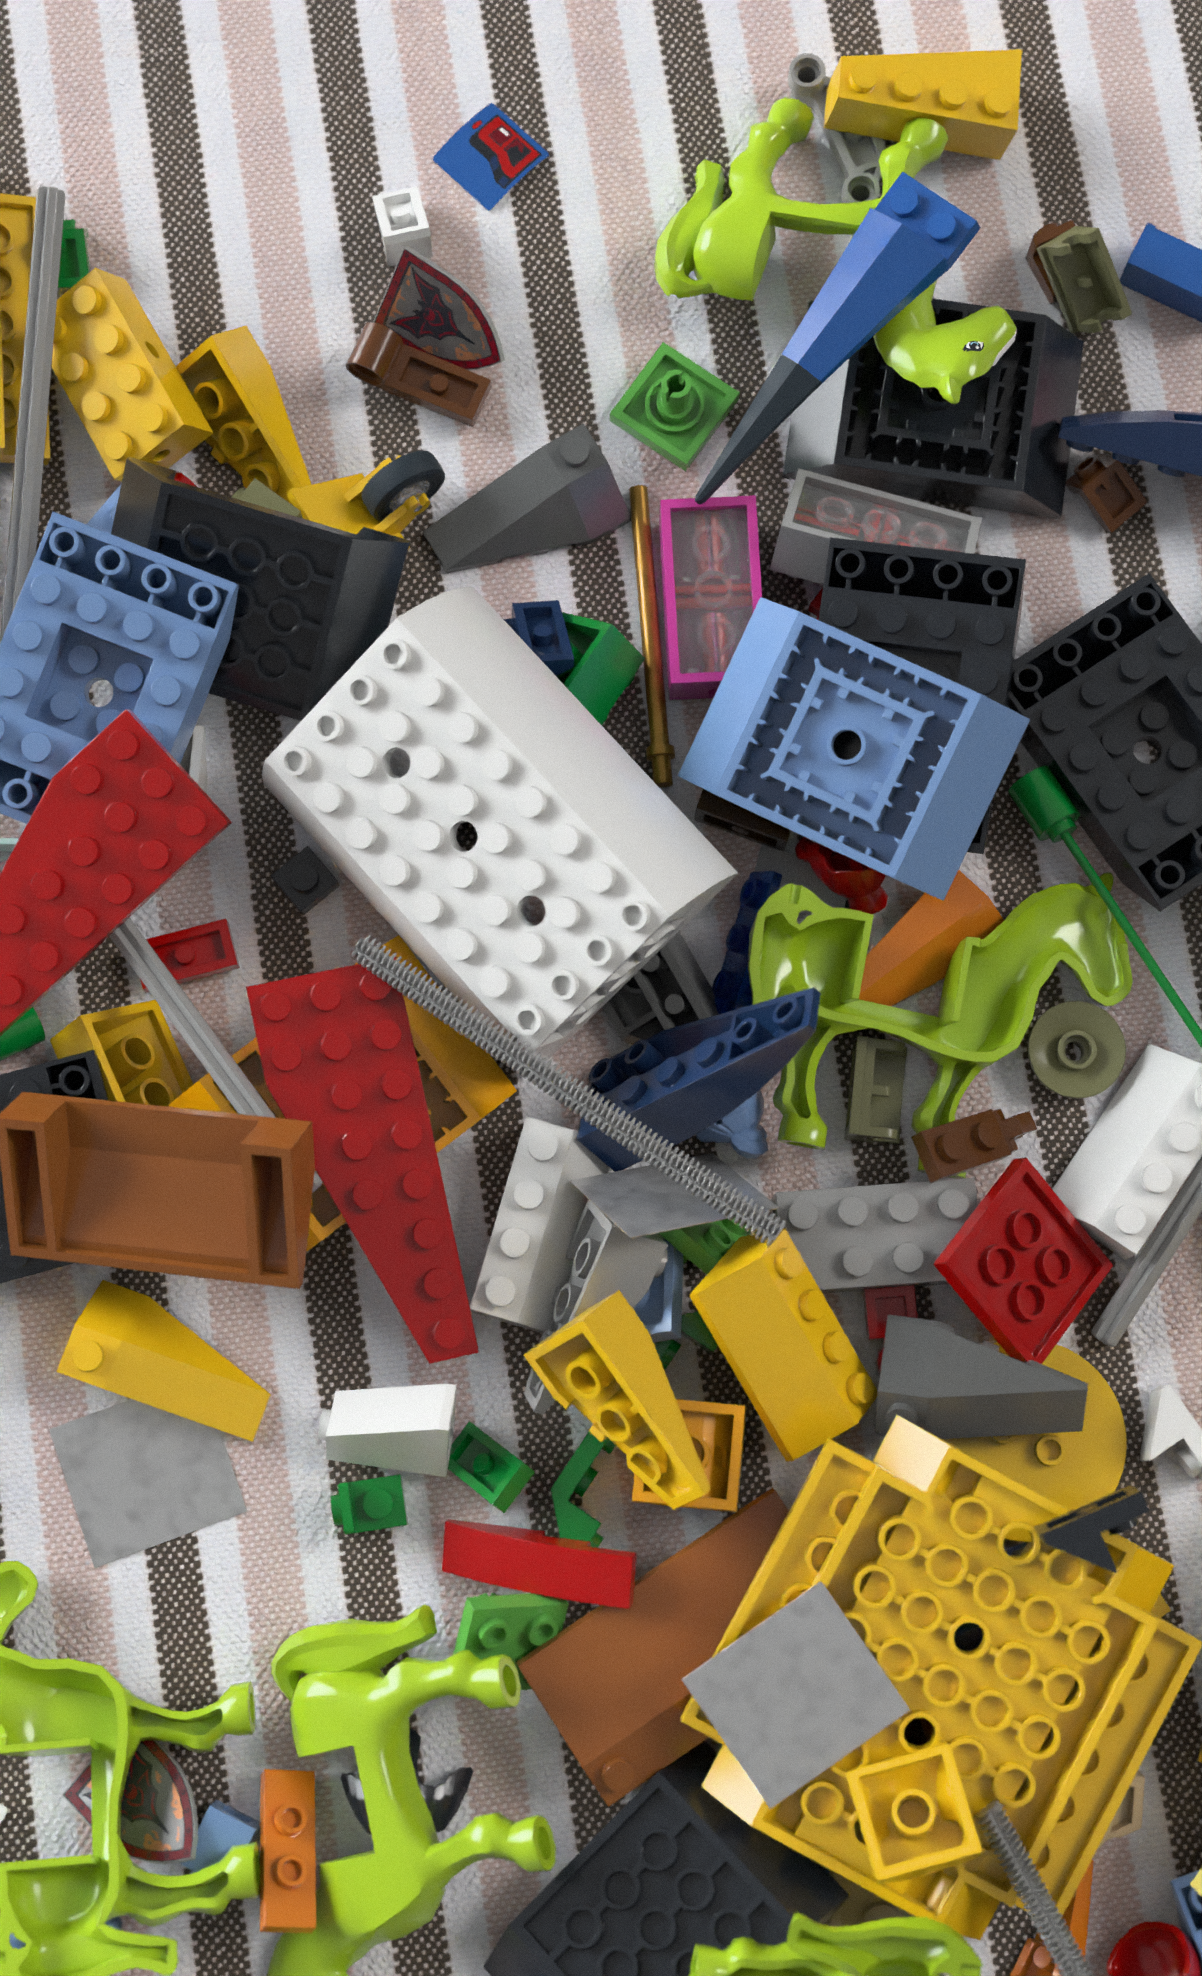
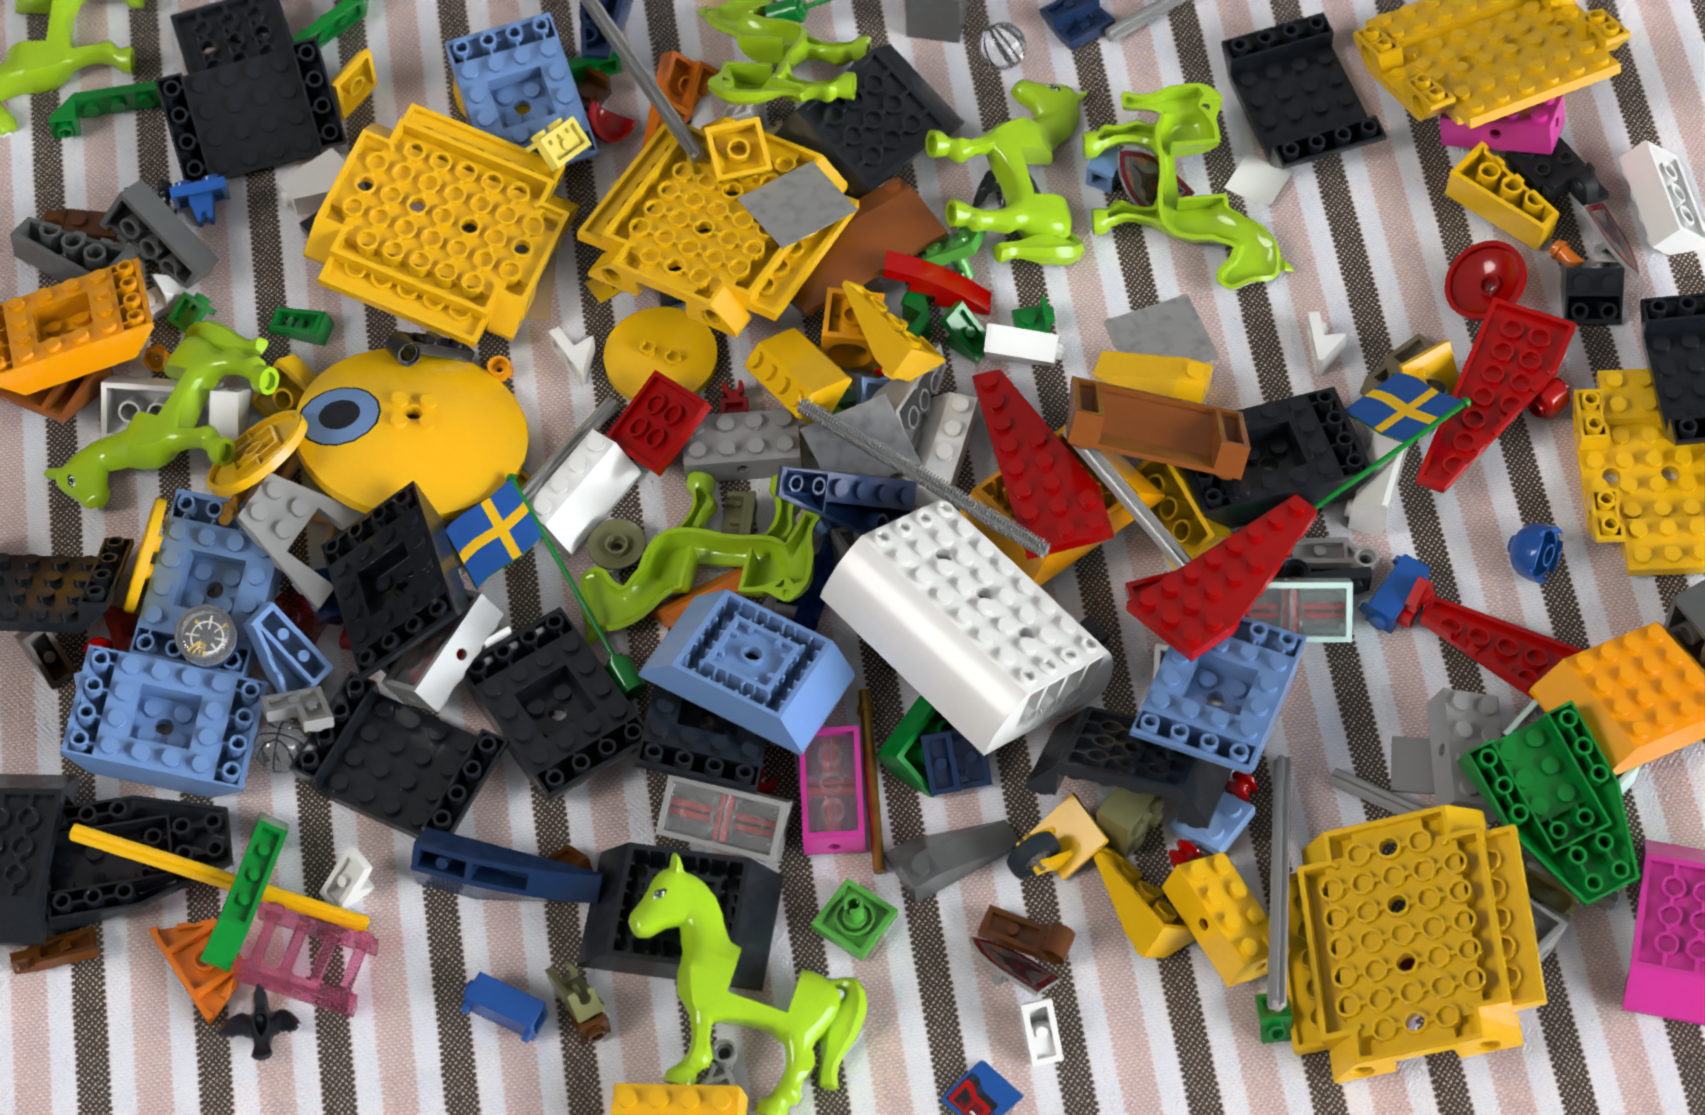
camera: 175 degrees left, 20 degrees down
(287, 1851) = (1069, 159): orange plate -> none
(886, 265) = (713, 949): blue plate -> none
(969, 1386) = (712, 360): dark grey wedge -> none
(970, 1142) = (683, 487): reddish brown hinge -> none
(1081, 1529) = (640, 262): black slope -> none

